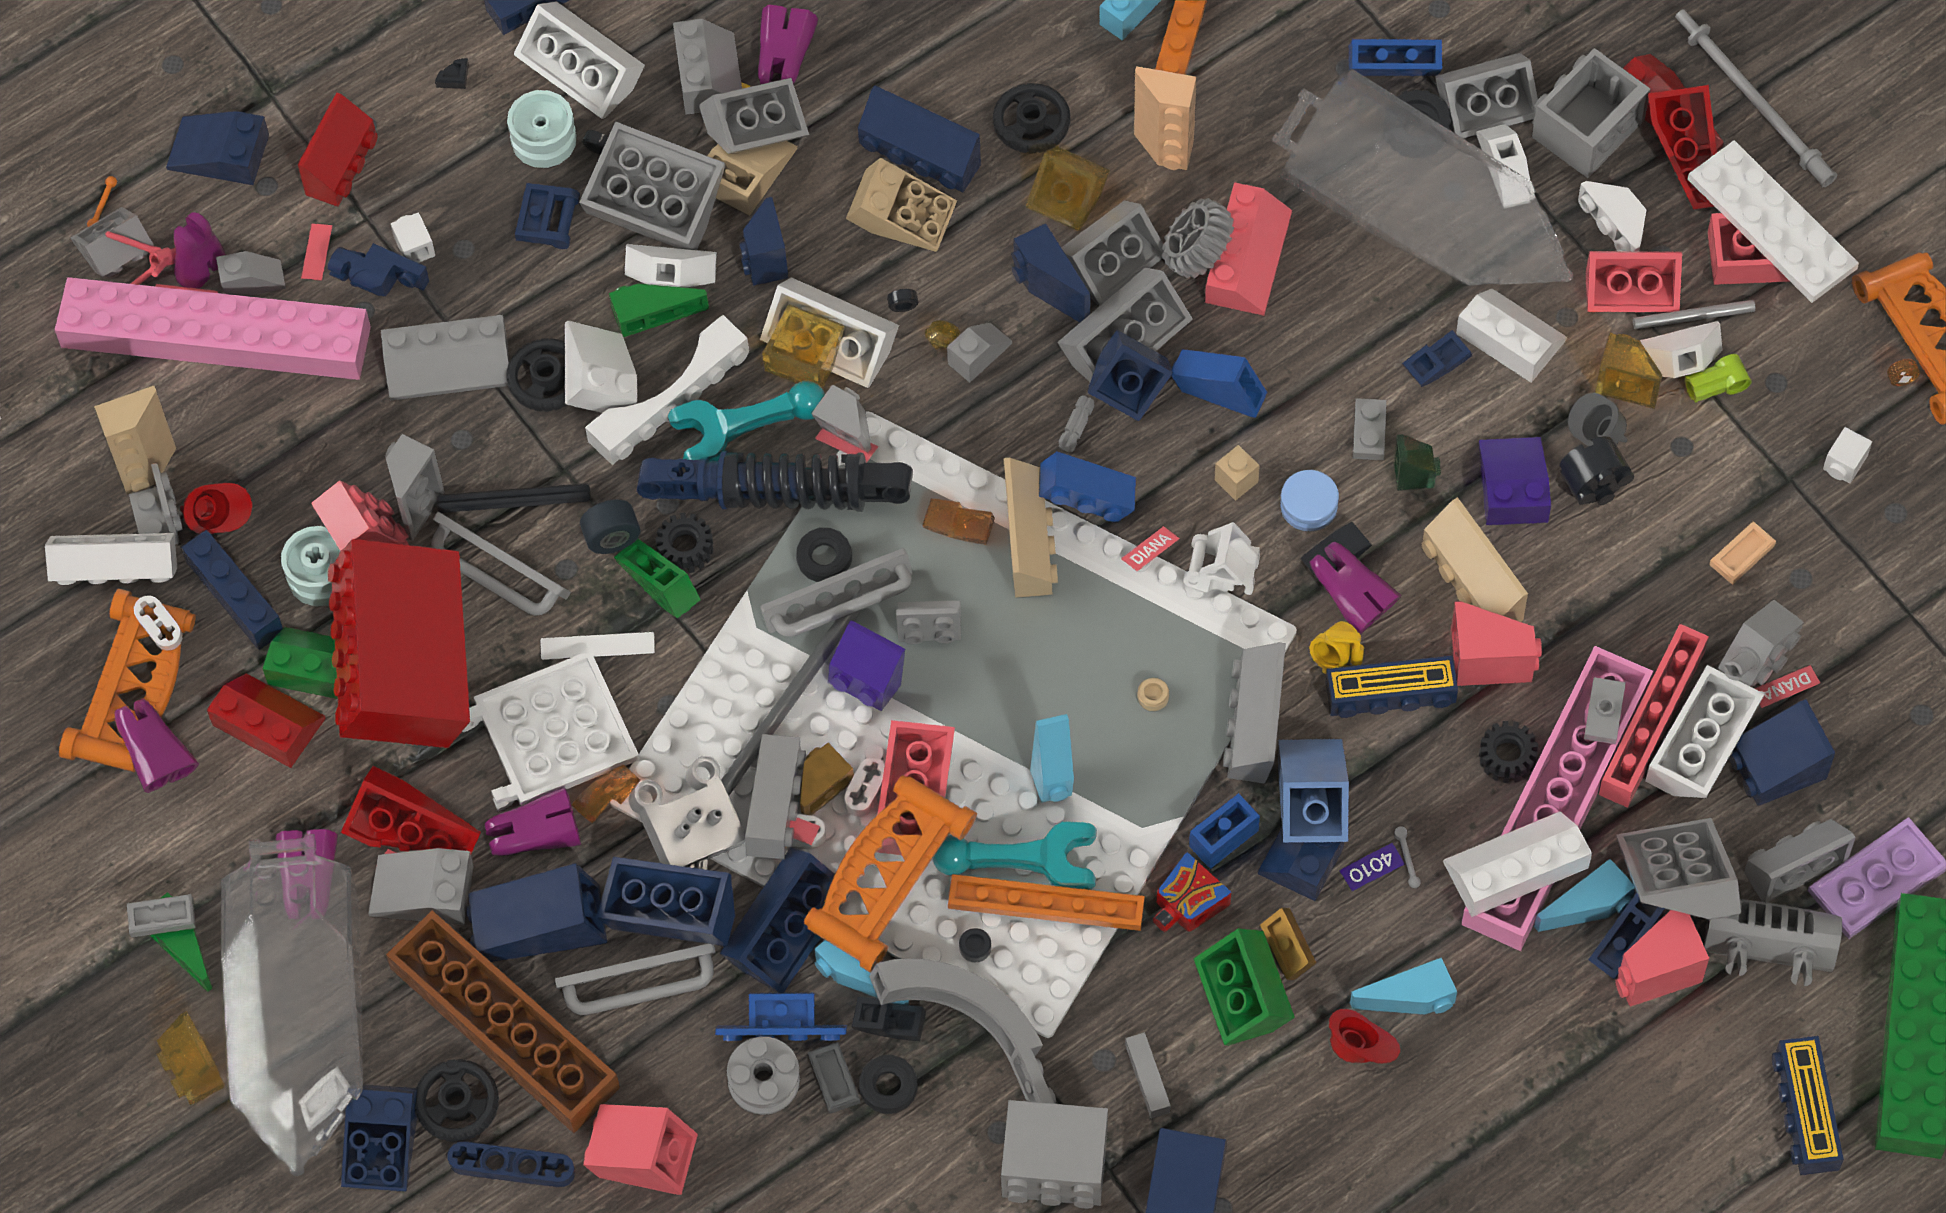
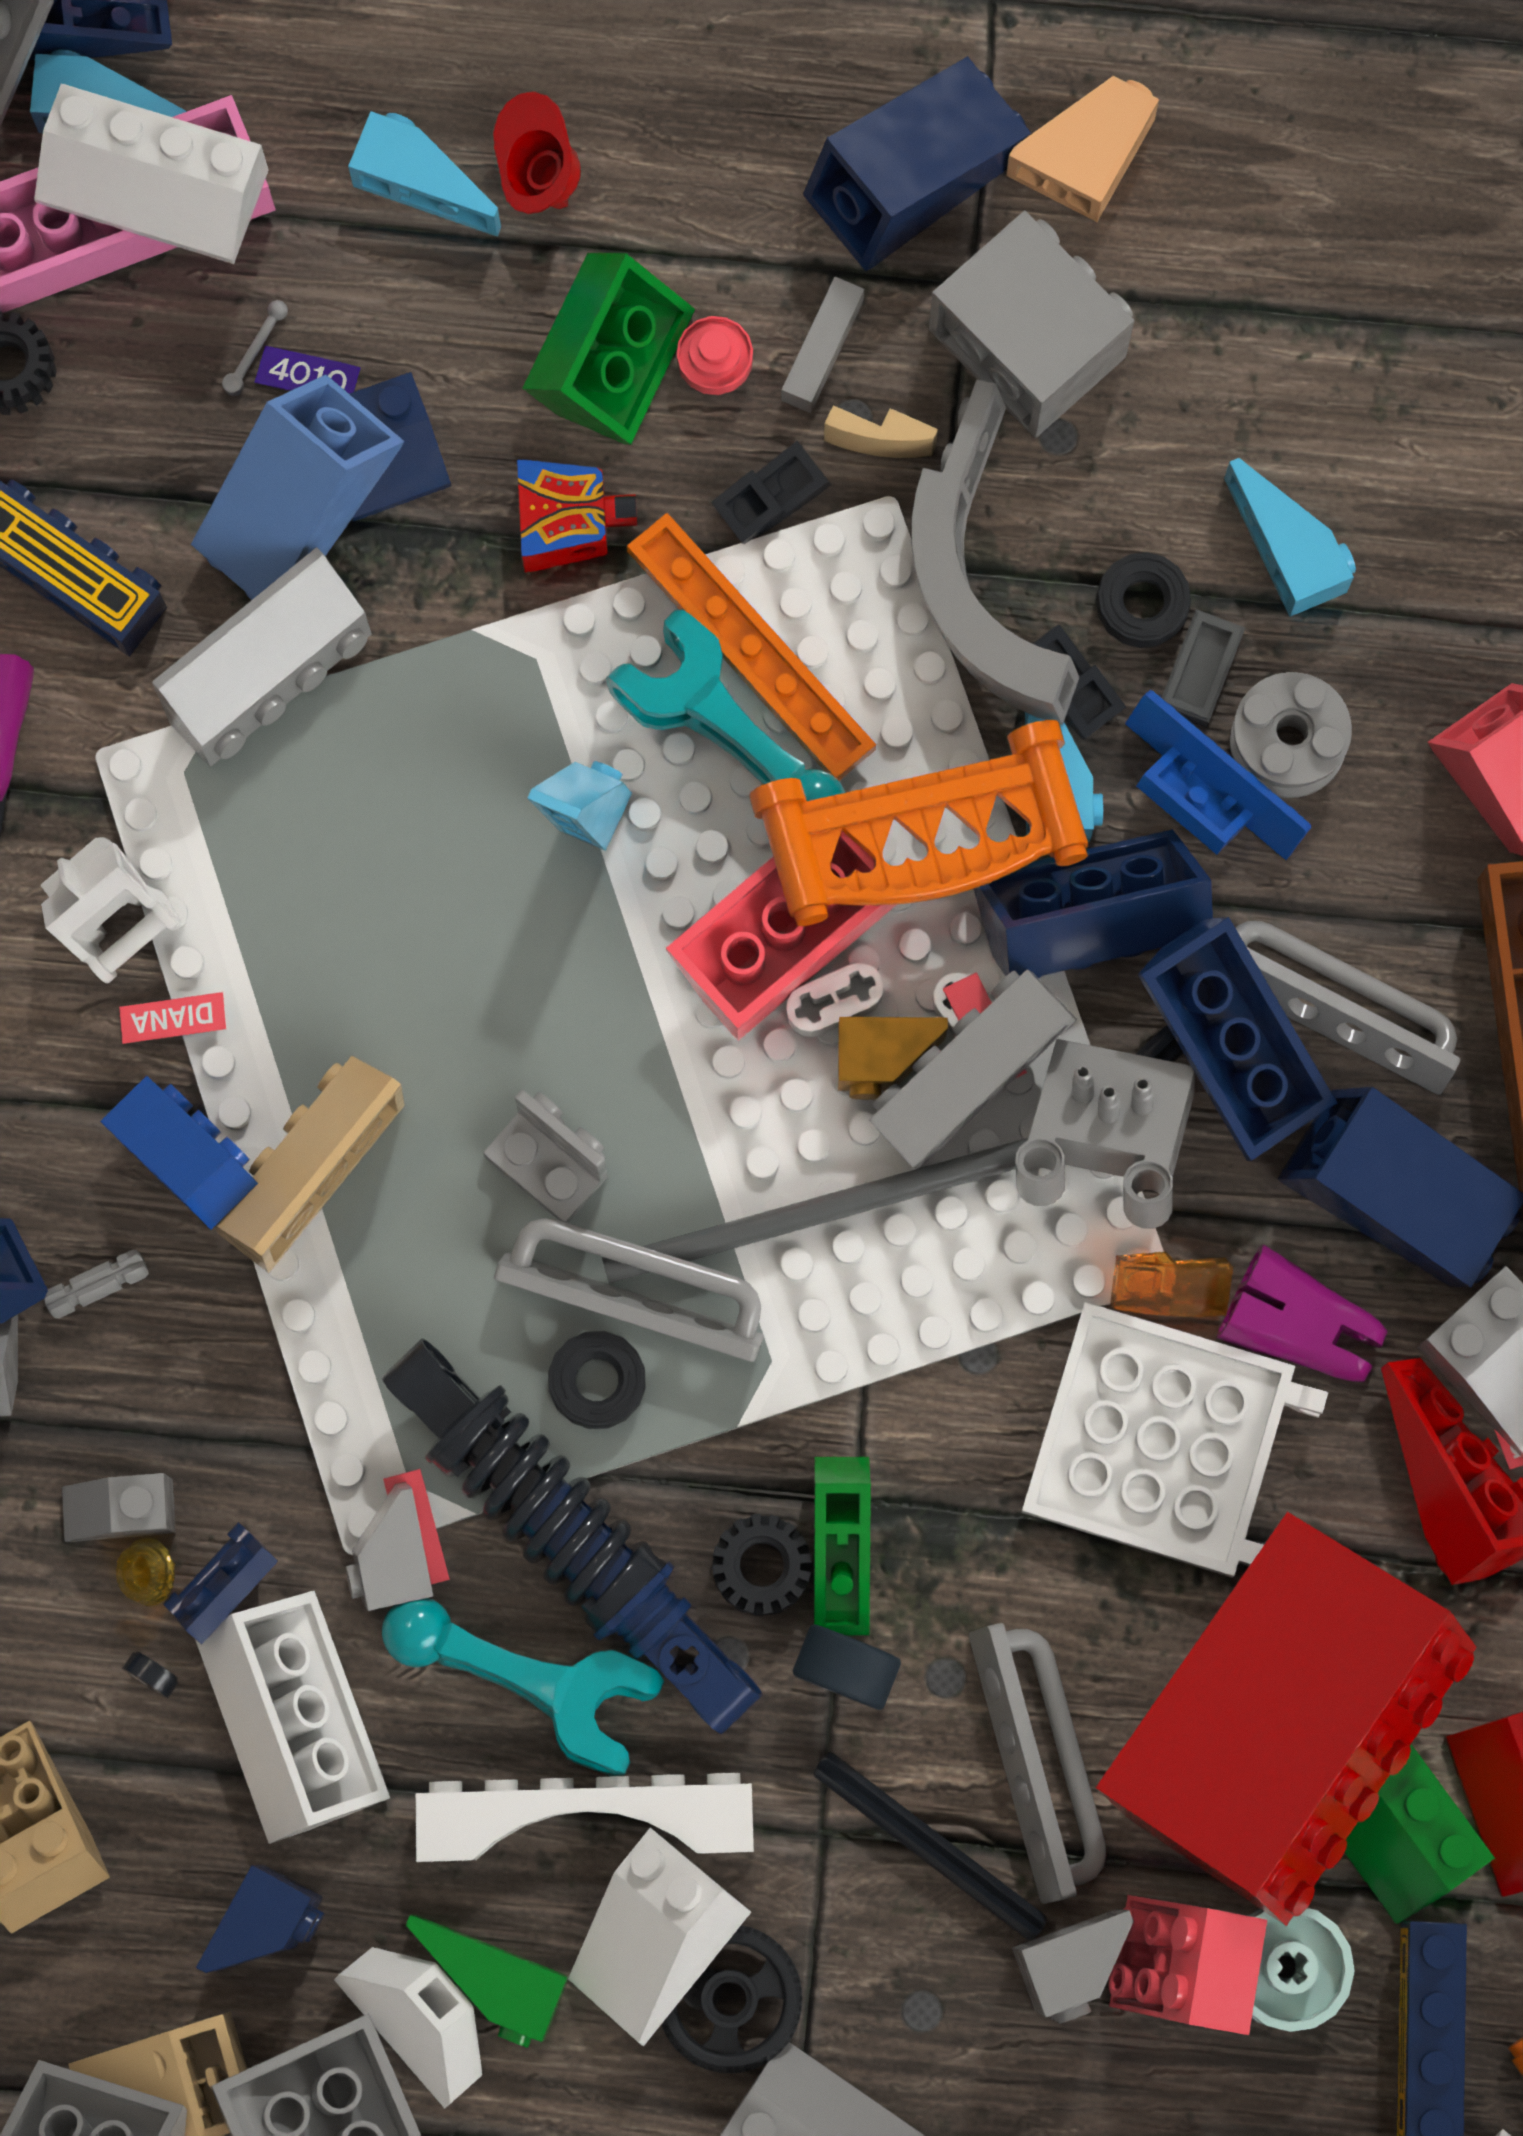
camera: 140 degrees left, 15 degrees up
(598, 644) = (999, 1524): white sticker -> none
(803, 347) = (350, 1710): clear yellow slope -> none
(840, 1164) = (1293, 544): none -> medium azure slope
(867, 666) = (695, 1149): dark purple slope -> none
(905, 350) = (221, 1584): none -> dark blue plate
(957, 522) = (380, 1271): clear orange slope -> none
(975, 945) = (884, 674): black tile -> none
(1071, 1058) = (896, 438): none -> tan slope
(1106, 988) = (771, 494): none -> black slope
(1153, 694) = (359, 814): tan tile -> none
(1192, 1026) = (714, 355): none -> coral plate
(1224, 831) = (448, 549): blue brick -> none
(1288, 943) = (505, 354): pearl gold plate -> none
(1336, 646) = (76, 667): yellow piece -> none

